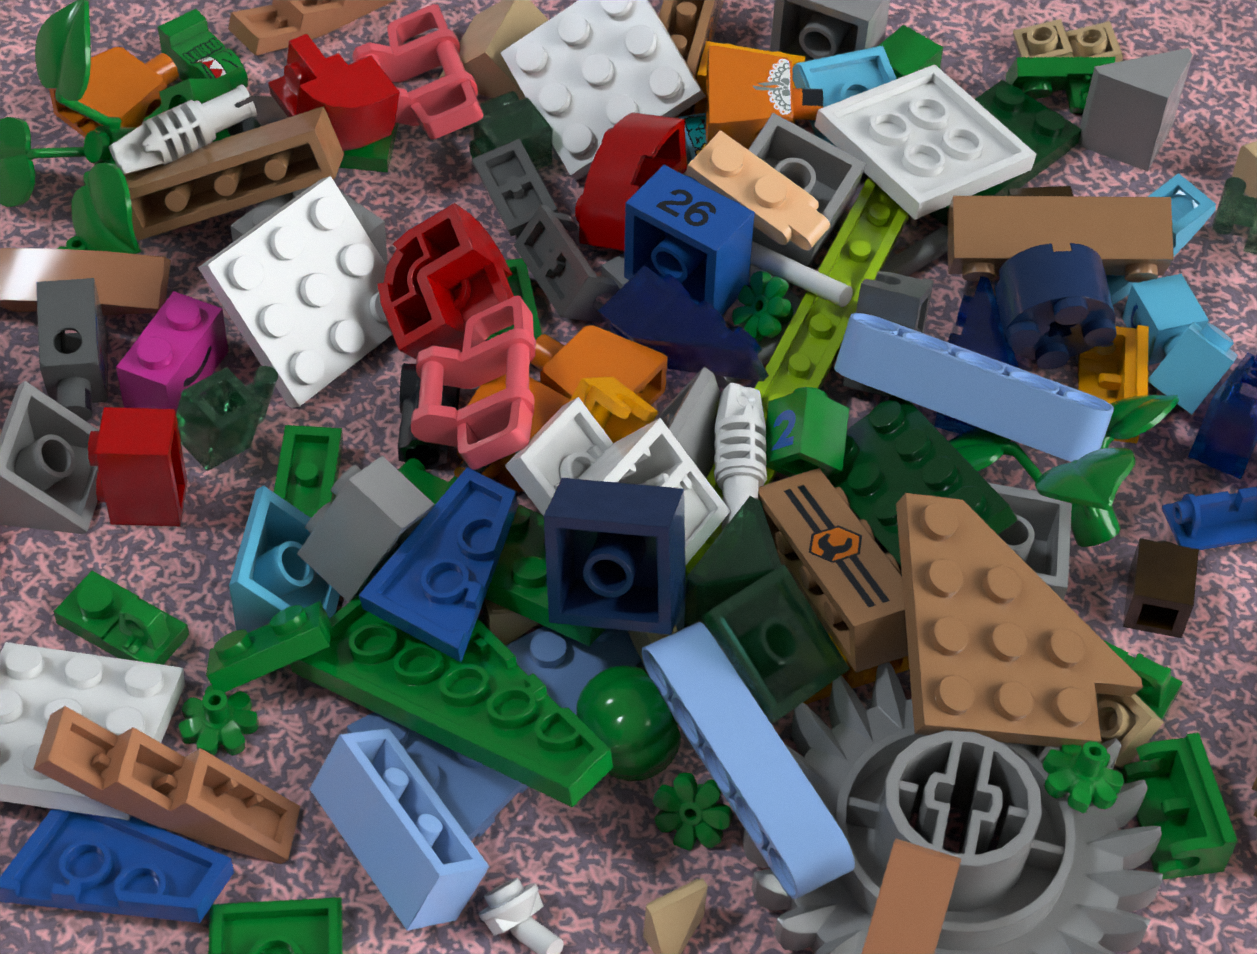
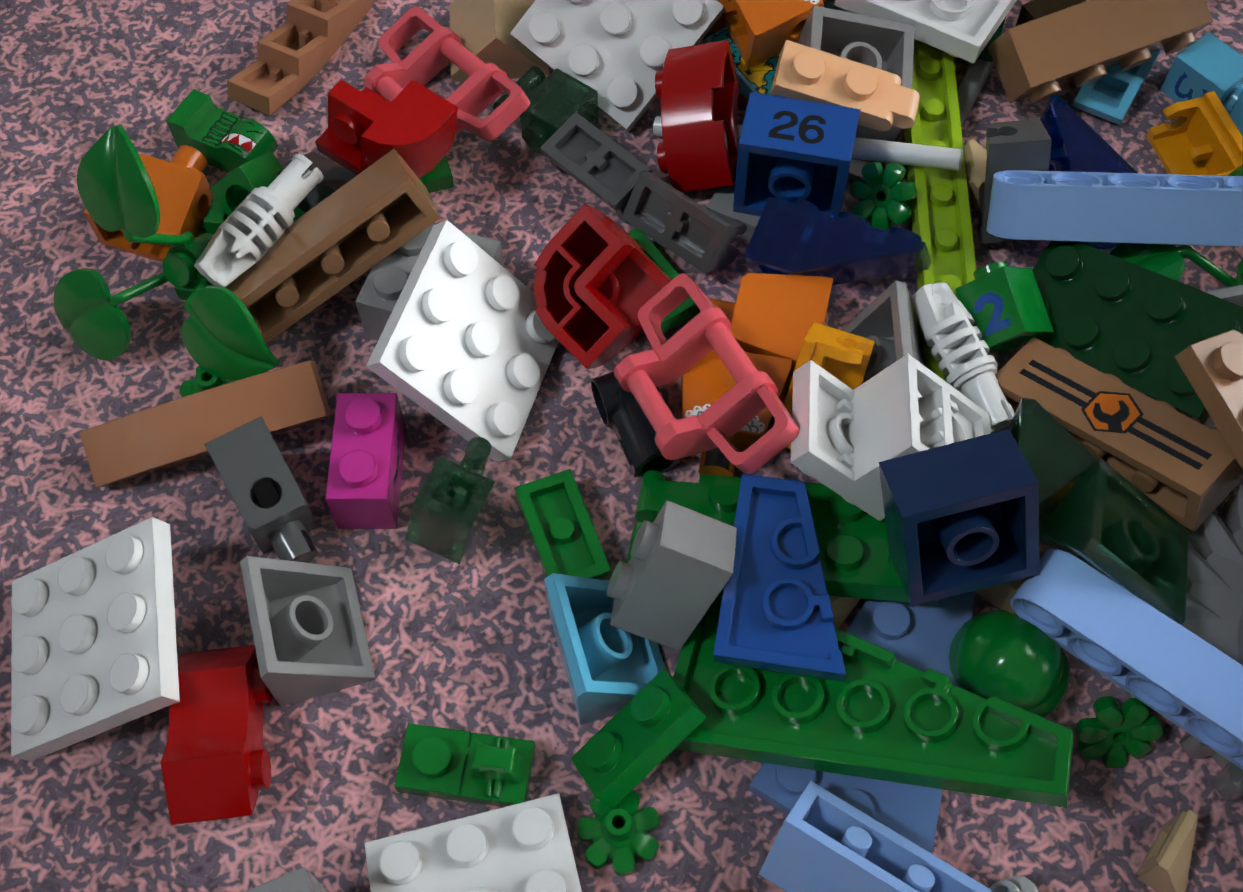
camera: 20 degrees left, 10 degrees up
(139, 466) = (404, 596): red brick -> none
(1055, 303) = (1139, 98): dark blue brick -> none

